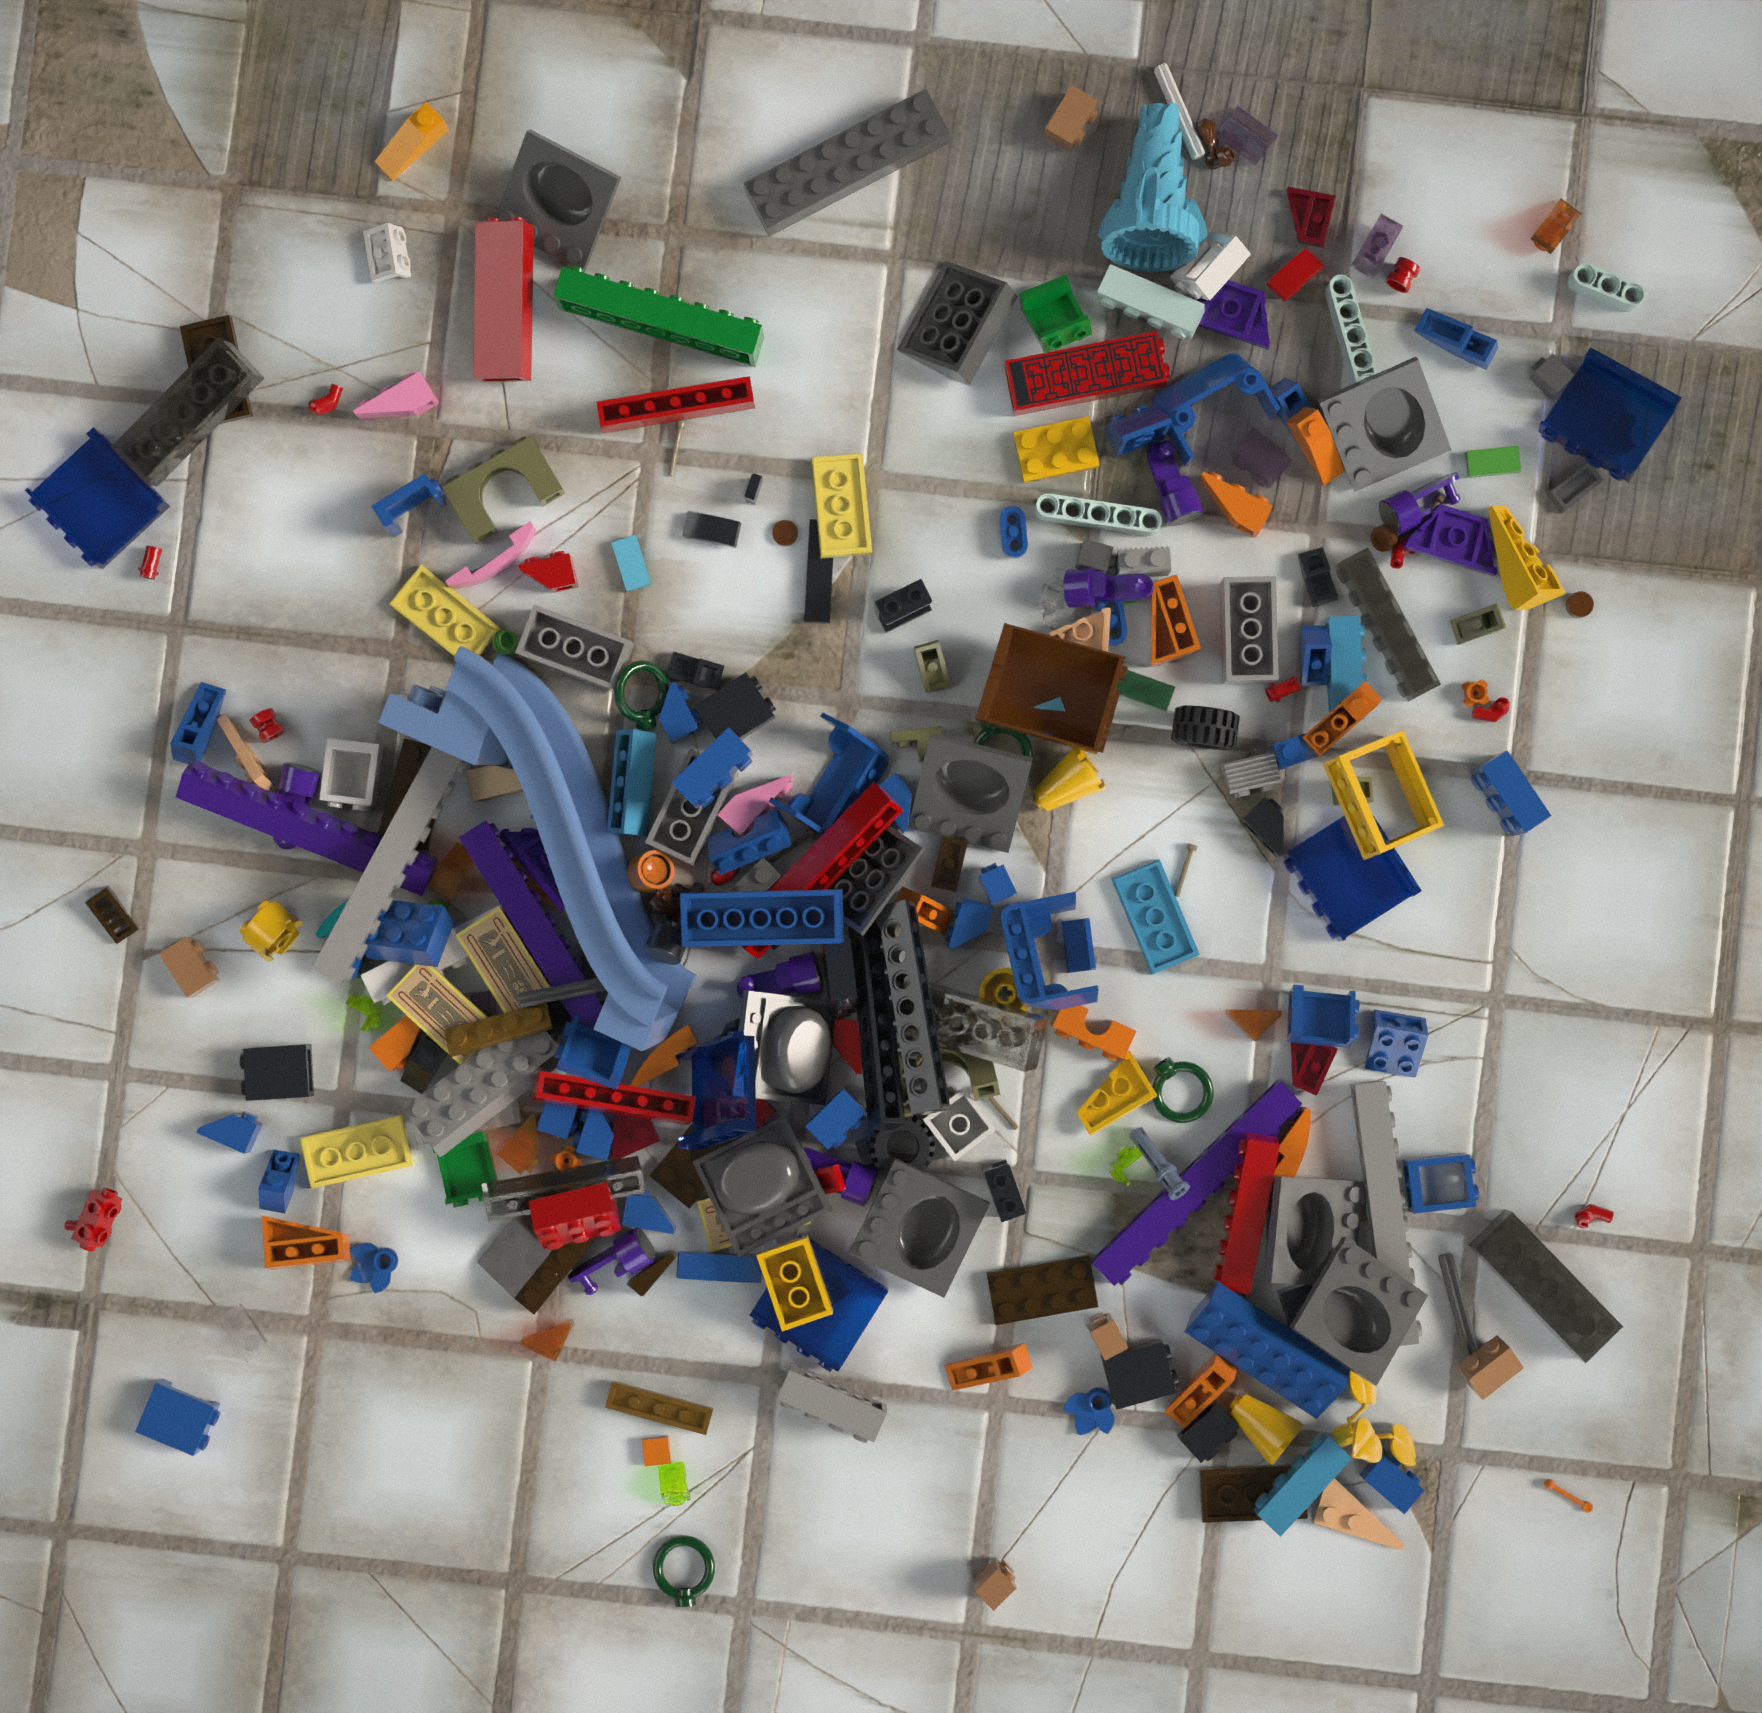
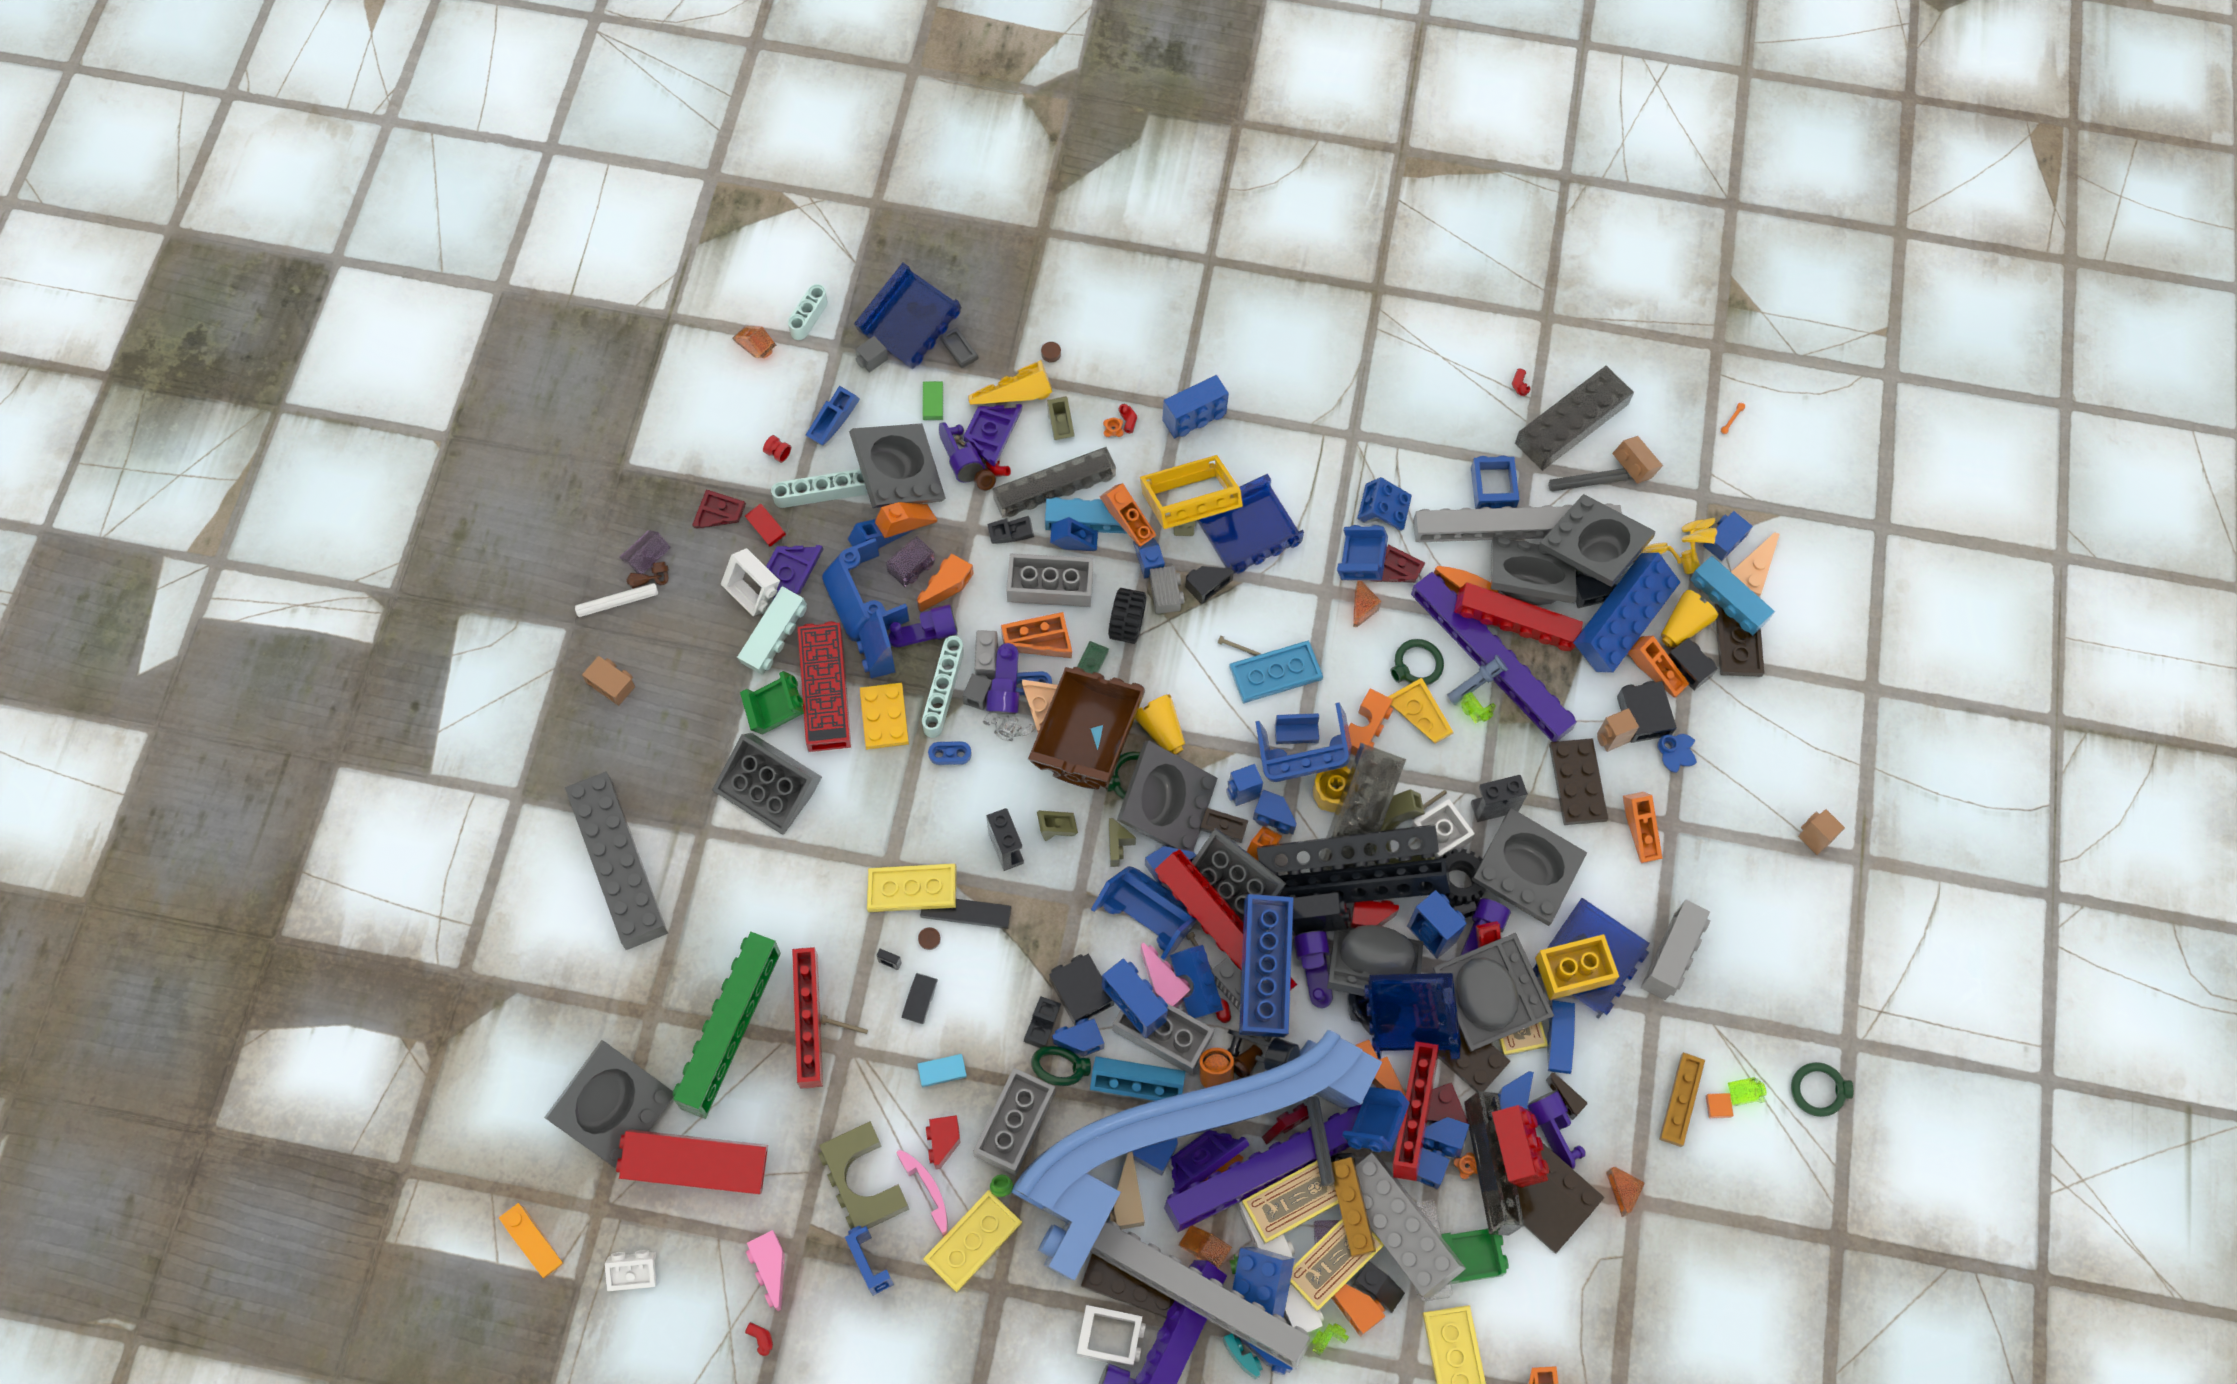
camera: 85 degrees left, 20 degrees down
(371, 1267) = (1560, 1352): blue plate -> none
(523, 1147) = (1454, 1200): clear orange slope -> none
(1153, 221) = (706, 620): medium azure cone -> none
(1282, 689) = (1100, 566): red pin -> none
(1377, 246) = (751, 463): clear purple brick -> none

